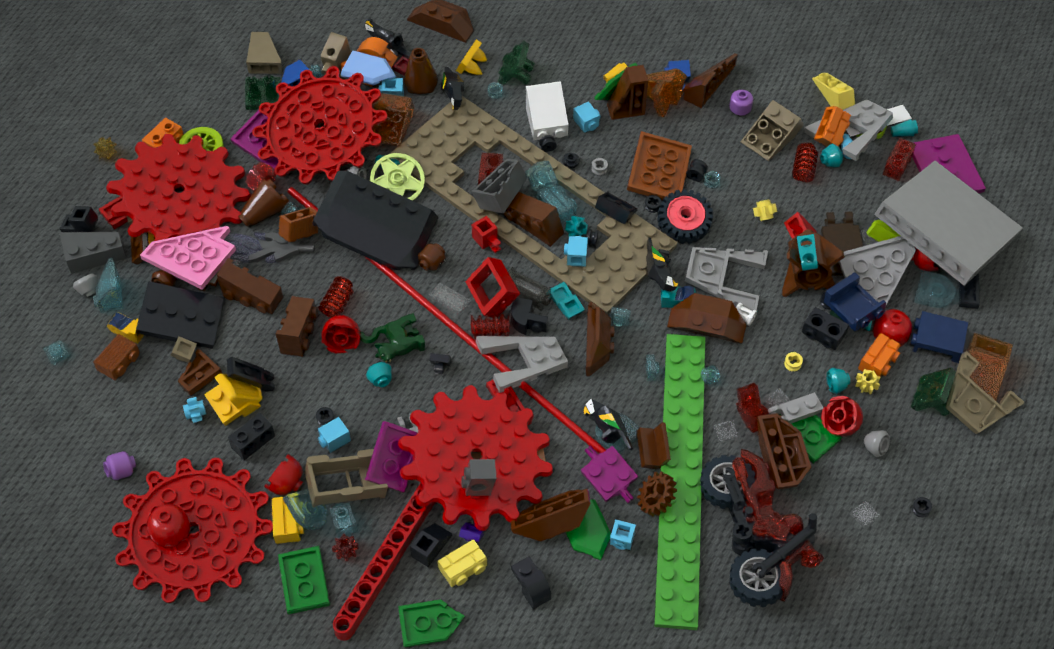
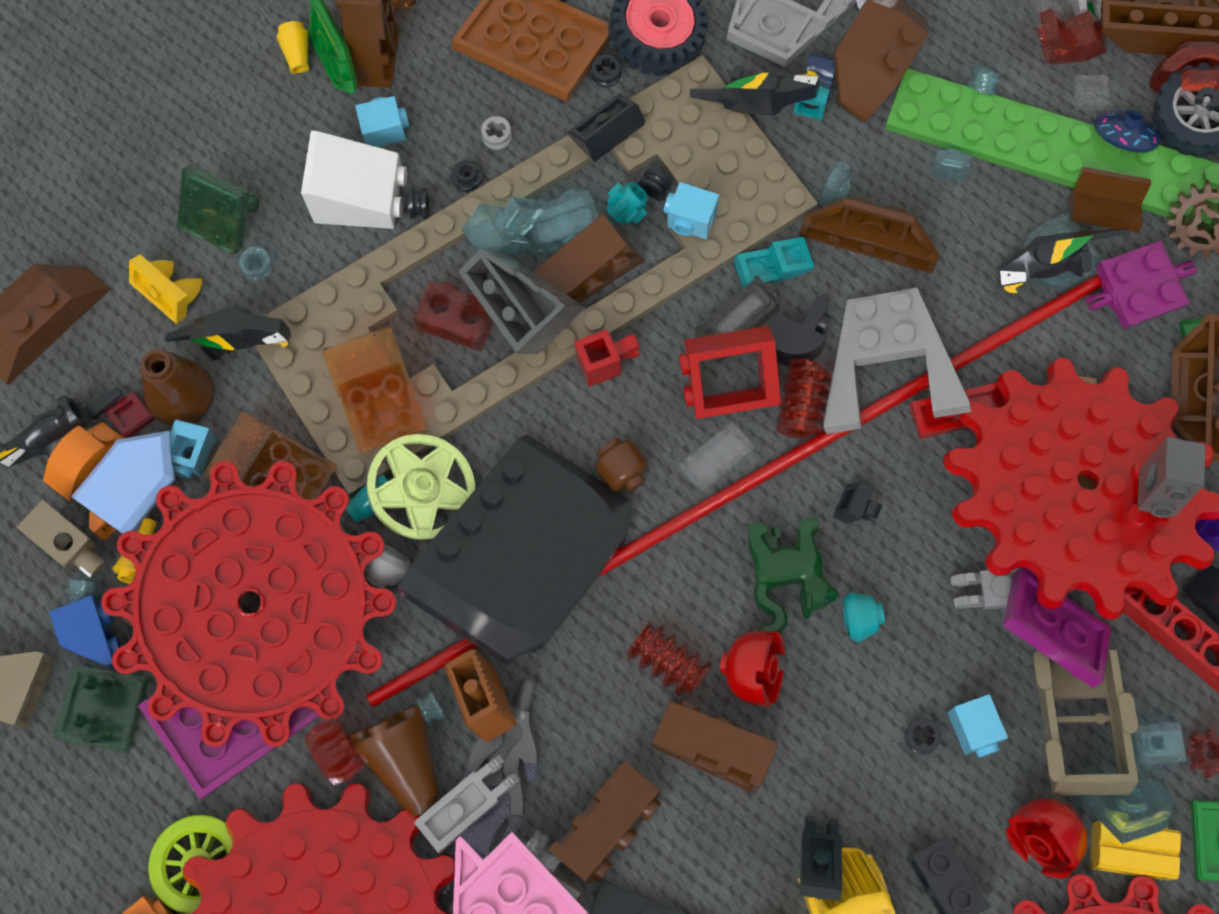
camera: 70 degrees left, 15 degrees up
(248, 232) = (463, 806): none -> light grey hinge
(440, 145) = (374, 388): none -> clear orange slope
(702, 448) = (1127, 131): none -> dark blue dish

